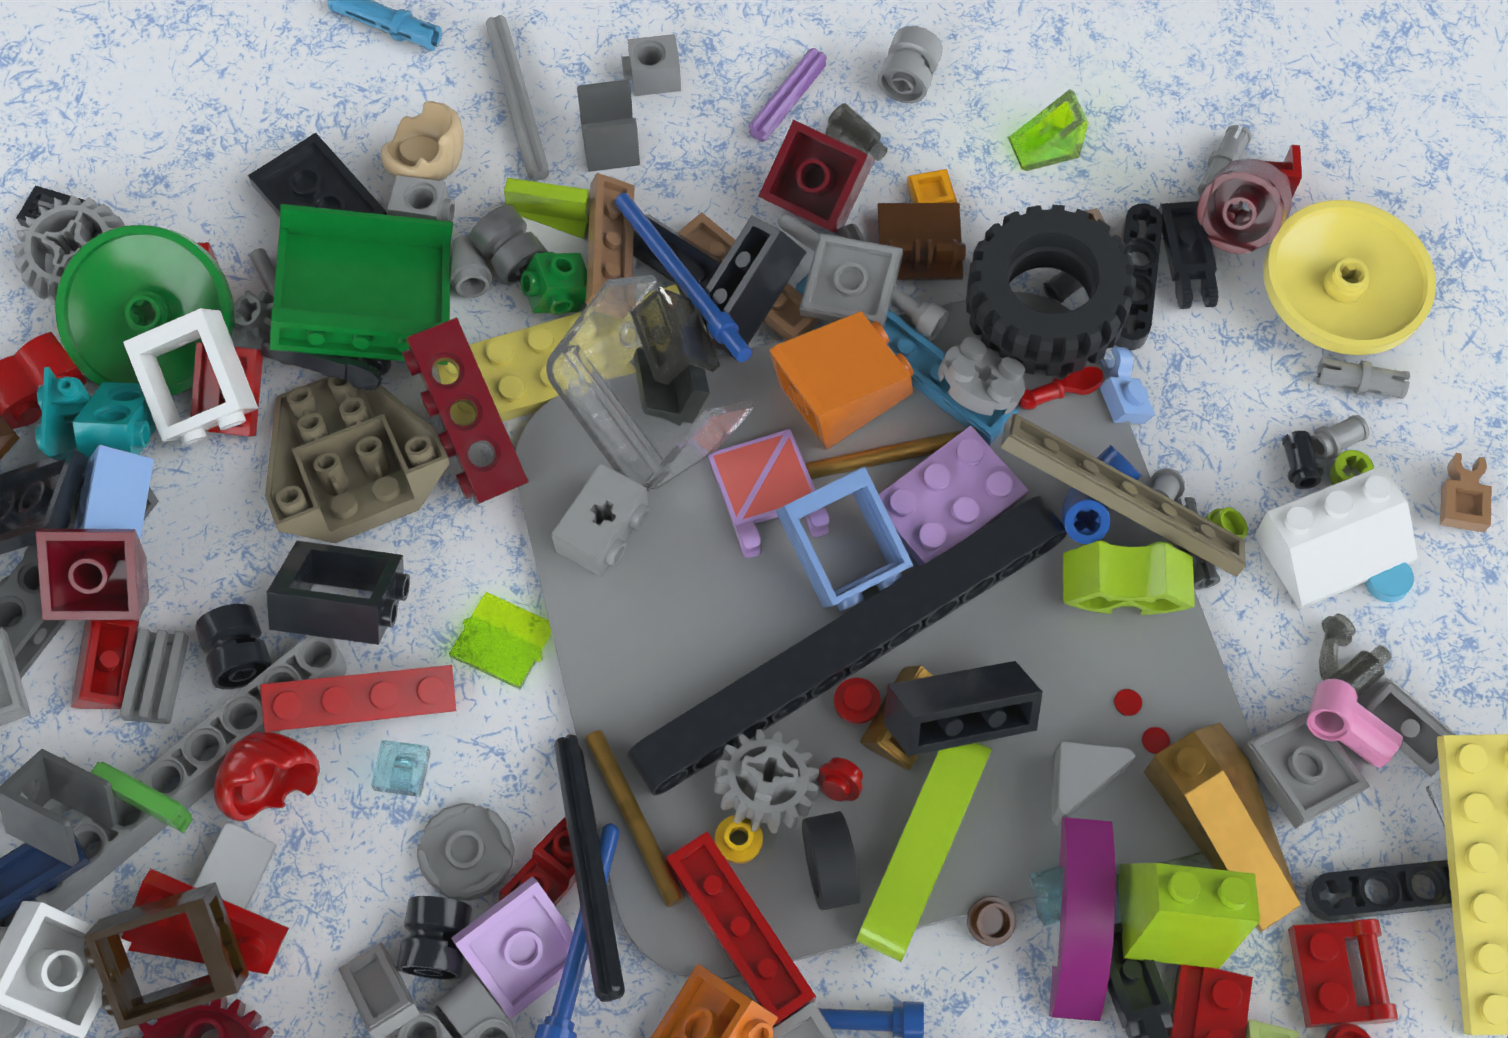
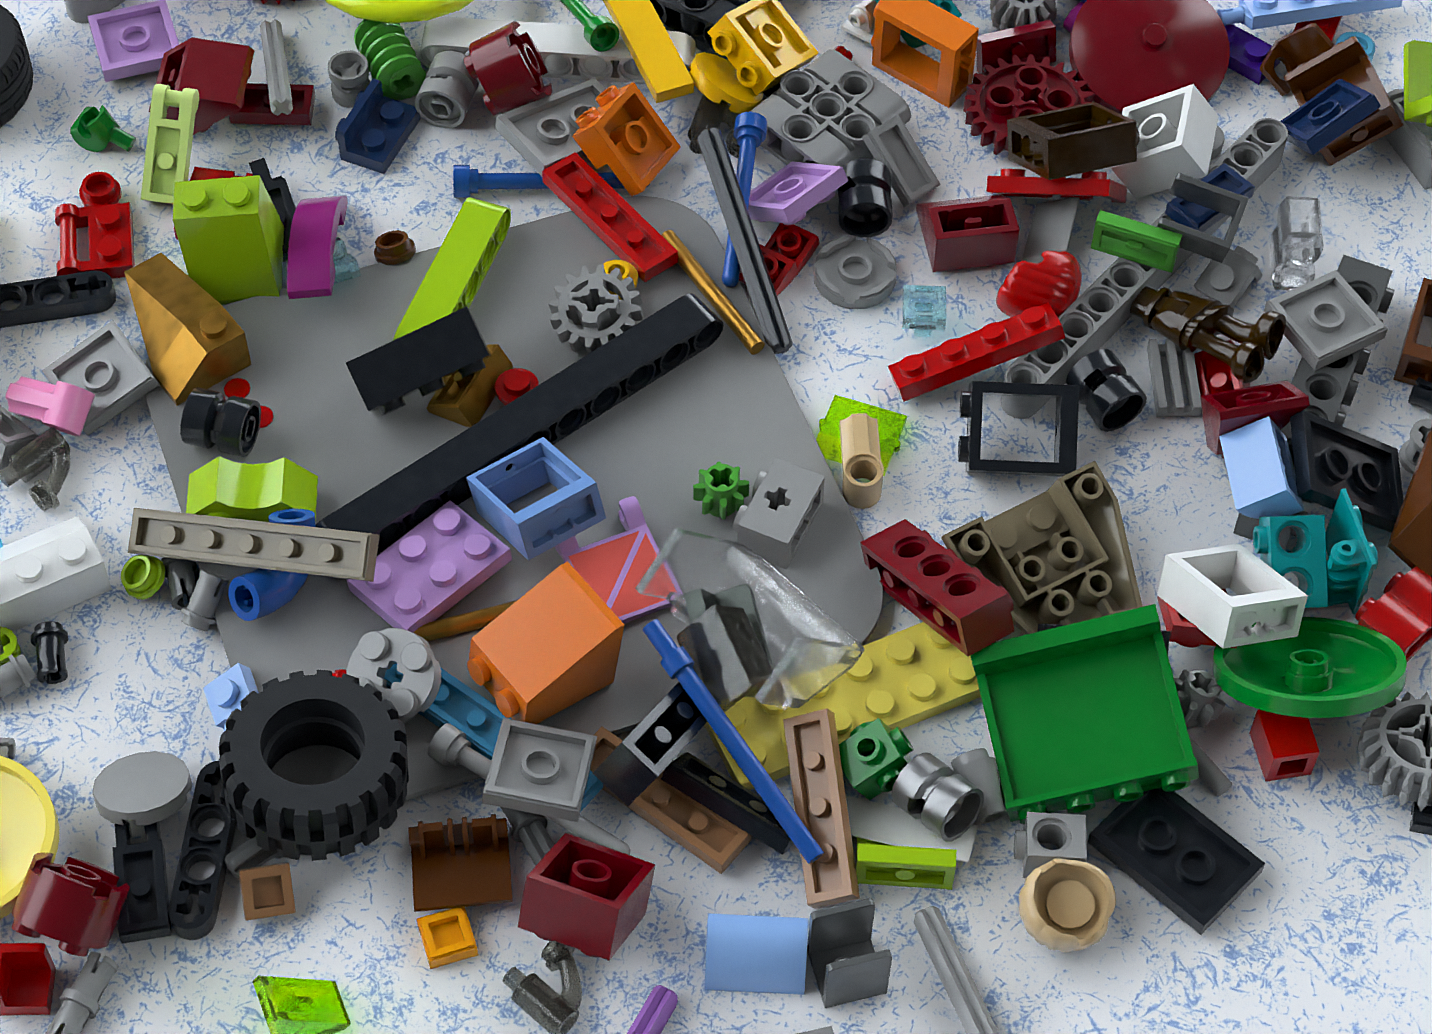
camera: 175 degrees right, 10 degrees down
(112, 714) = (1196, 321): none -> dark brown piece
(323, 883) = (969, 232): none -> dark red slope
(508, 588) = (861, 460): none -> tan piece
(656, 538) = (720, 490): none -> bright green gear
(681, 154) = (756, 954): none -> light blue brick
(831, 860) = (535, 248): black tyre -> none
(840, 779) = (529, 321): red plate -> none
(1082, 773) = (306, 338): light grey slope -> none
(1169, 669) = (227, 423): none -> black wheel
(1198, 318) = (142, 788): none -> light grey tile

